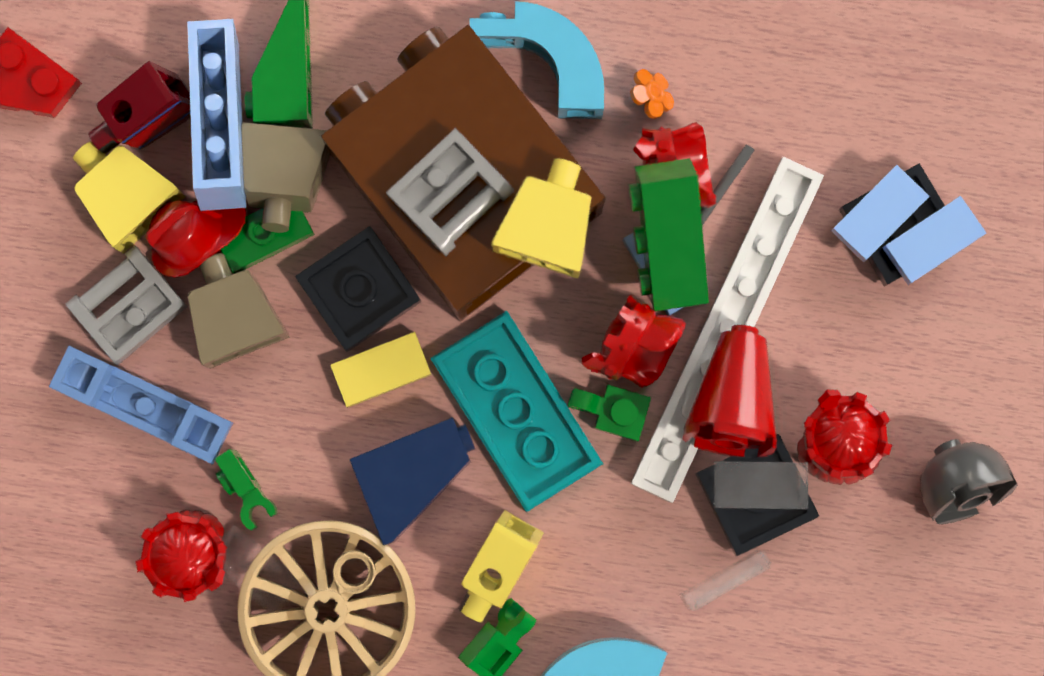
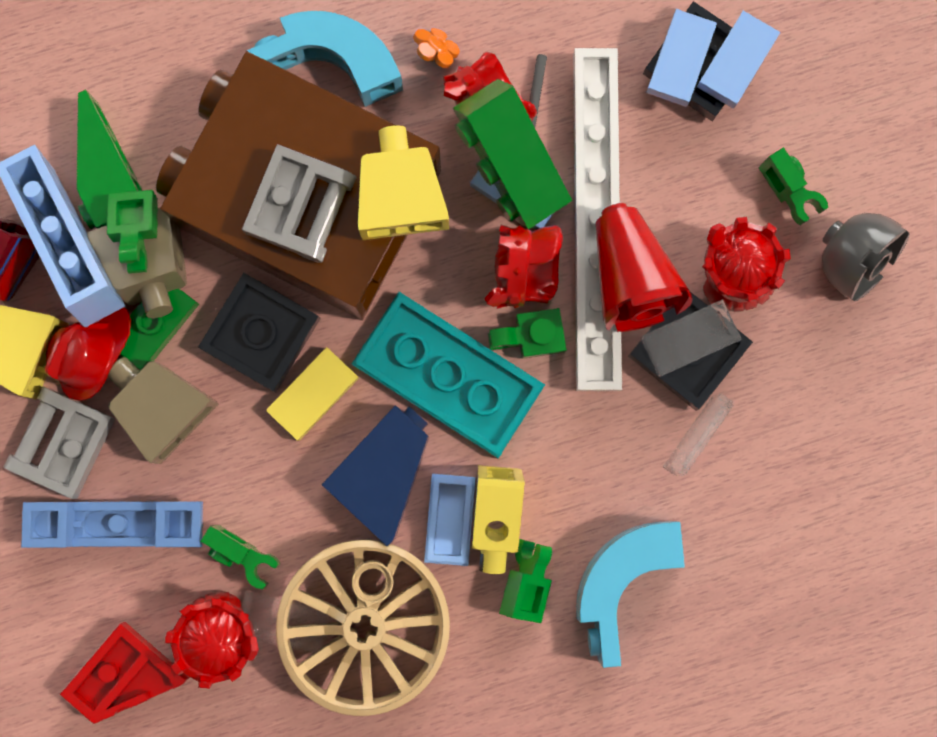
camera: 30 degrees left, 0 degrees up
(84, 548) = (121, 676): none -> red wing
(288, 133) = (130, 221): none -> green plate
(453, 548) = (449, 519): none -> light blue tile
(928, 374) = (787, 181): none -> green plate

